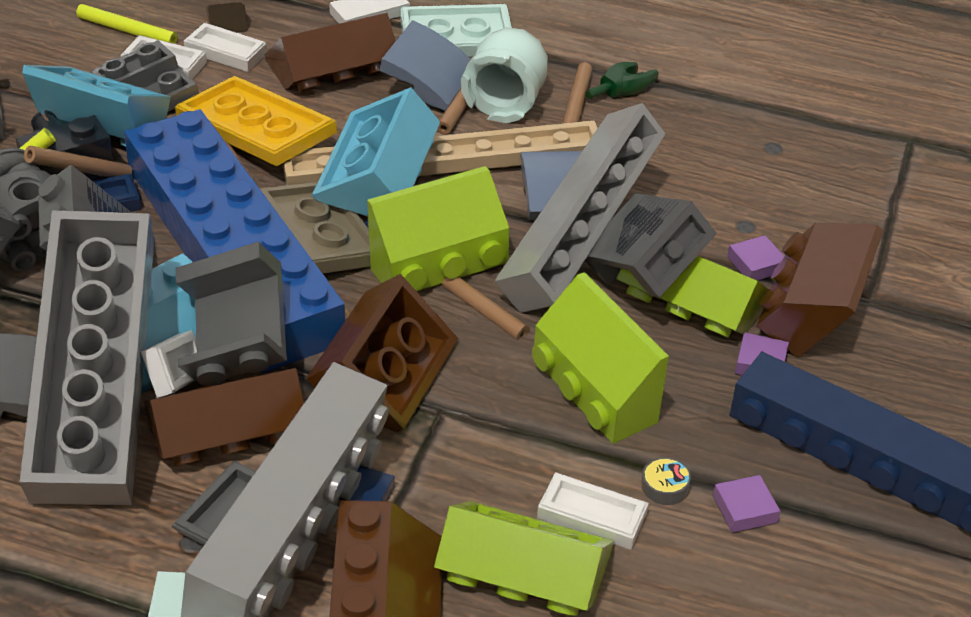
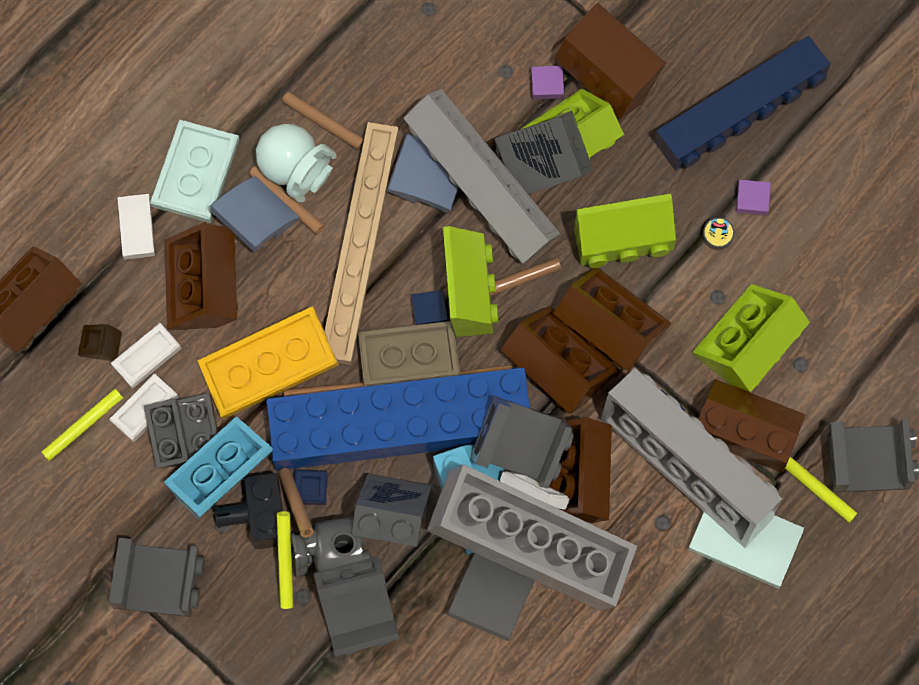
camera: 65 degrees left, 30 degrees up
(213, 504) = (647, 495): dark grey tile -> none
(378, 152) = (369, 292): medium azure slope -> none
(470, 392) = (611, 318): none -> reddish brown slope
(593, 510) = (725, 286): white tile -> none
(623, 81) = (315, 81): dark green hand -> none
(753, 345) = (640, 127): medium lavender tile -> none

